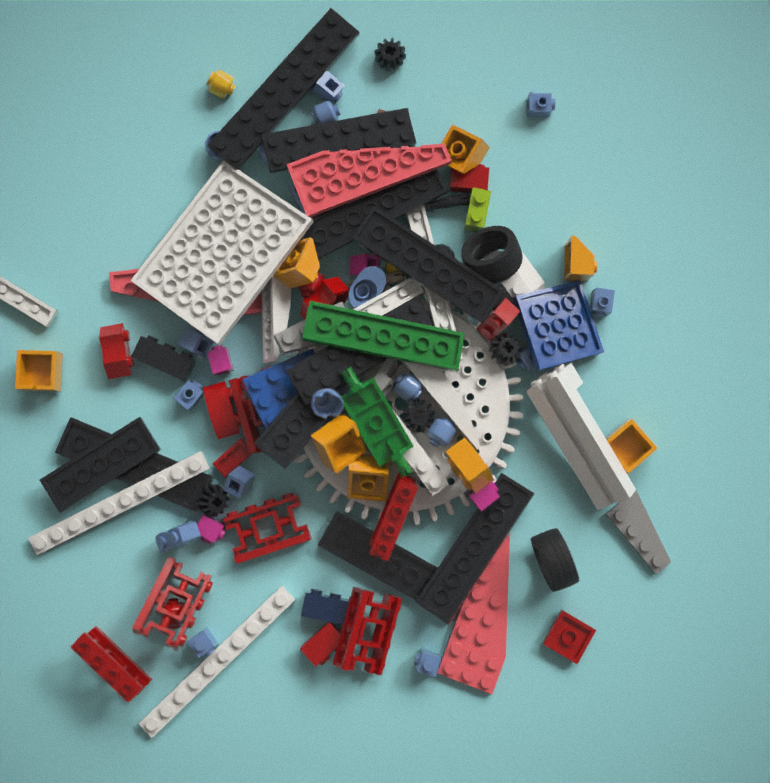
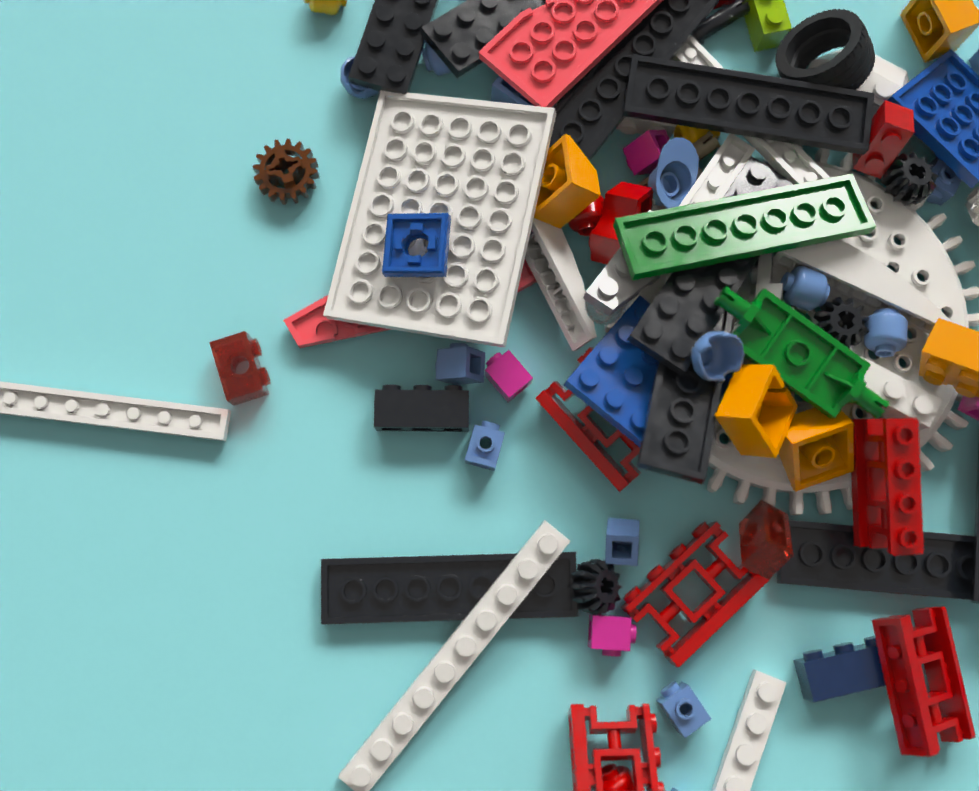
camera: 25 degrees left, 5 degrees down
(38, 370) = (242, 510): light orange piece -> none
(69, 279) = (227, 355): none -> clear red brick
(100, 464) = (400, 612): black plate -> none
(116, 351) = (345, 430): red brick -> none
(142, 182) = (274, 164): none -> reddish brown gear
(177, 536) = (572, 666): medium blue brick -> none
(192, 253) = (402, 231): none -> blue piece
(221, 410) = (544, 446): red brick -> none
(230, 586) = (682, 708): none -> medium blue brick
(232, 458) = (592, 511): red plate -> none
(317, 516) = (765, 540): none -> clear red brick
(321, 644) = (862, 730): red brick -> none

